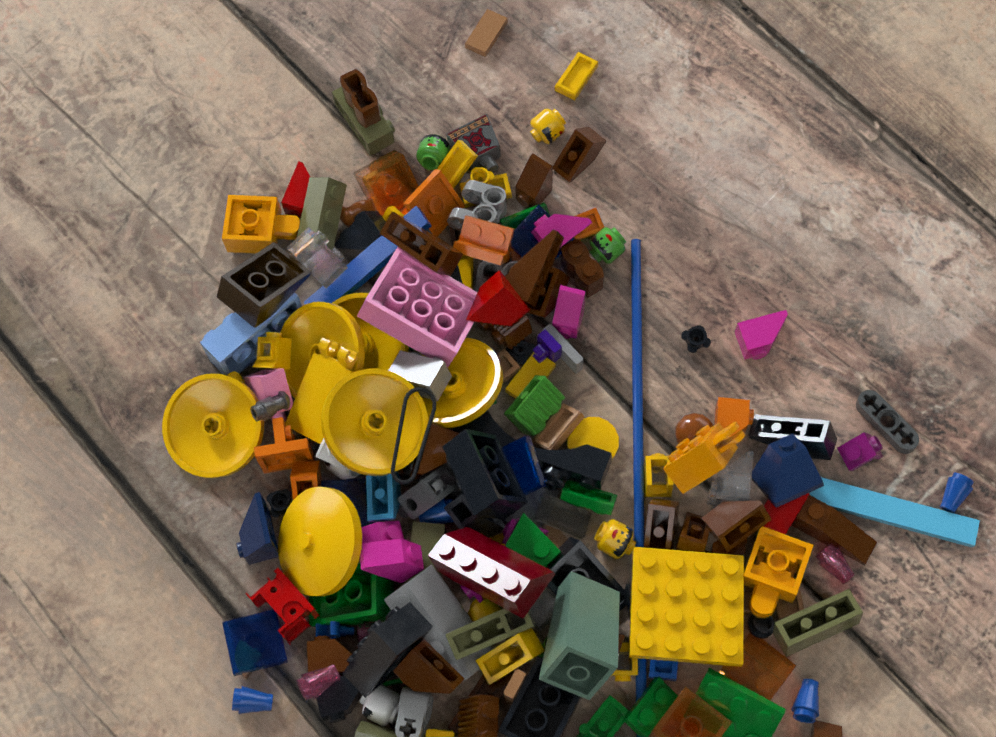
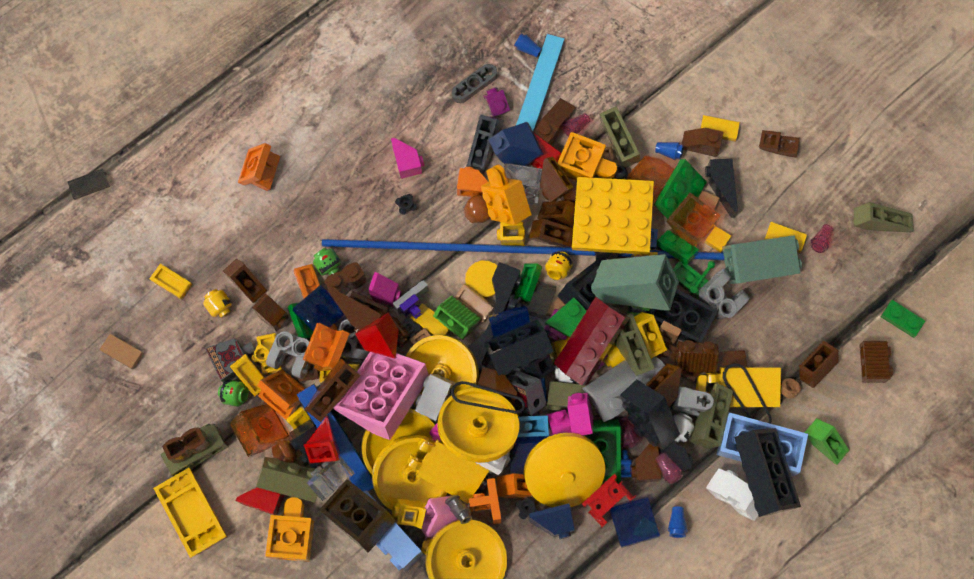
camera: 90 degrees left, 5 degrees up
(290, 119) = (190, 512): none -> yellow slope
(357, 246) = (322, 444): none -> red slope
(566, 225) = (316, 295): dark pink slope -> none
(733, 160) = (259, 167): none -> orange bracket

